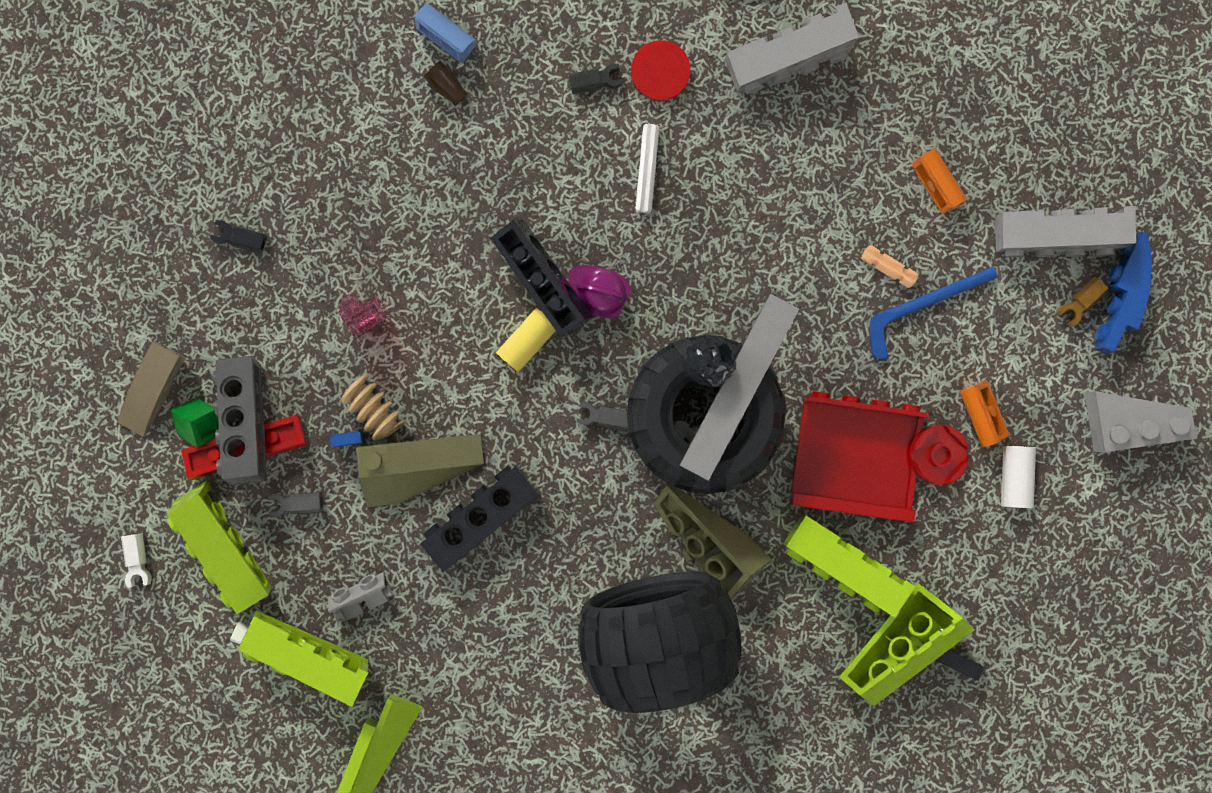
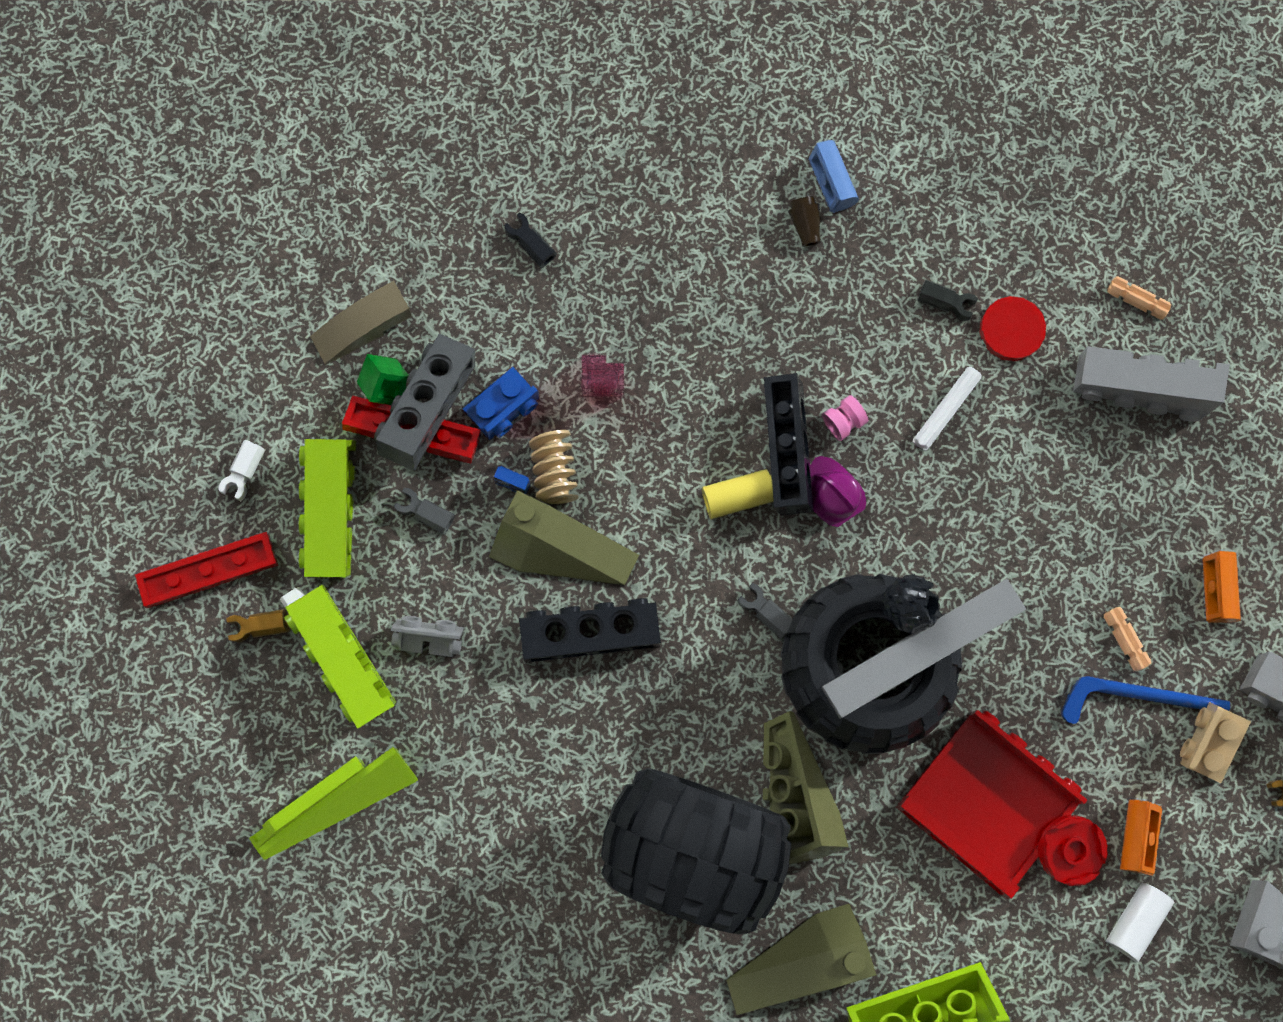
camera: 25 degrees right, 10 degrees down
(160, 653) = (206, 570): none -> red plate
(226, 669) = (259, 625): none -> pearl gold bar
(301, 382) = (502, 403): none -> blue bracket
(575, 221) = (845, 418): none -> bright pink wheel
(793, 656) = (809, 960): none -> olive wedge
(848, 566) = (919, 903): lime wedge -> none
(998, 306) = (1214, 742): none -> tan bracket

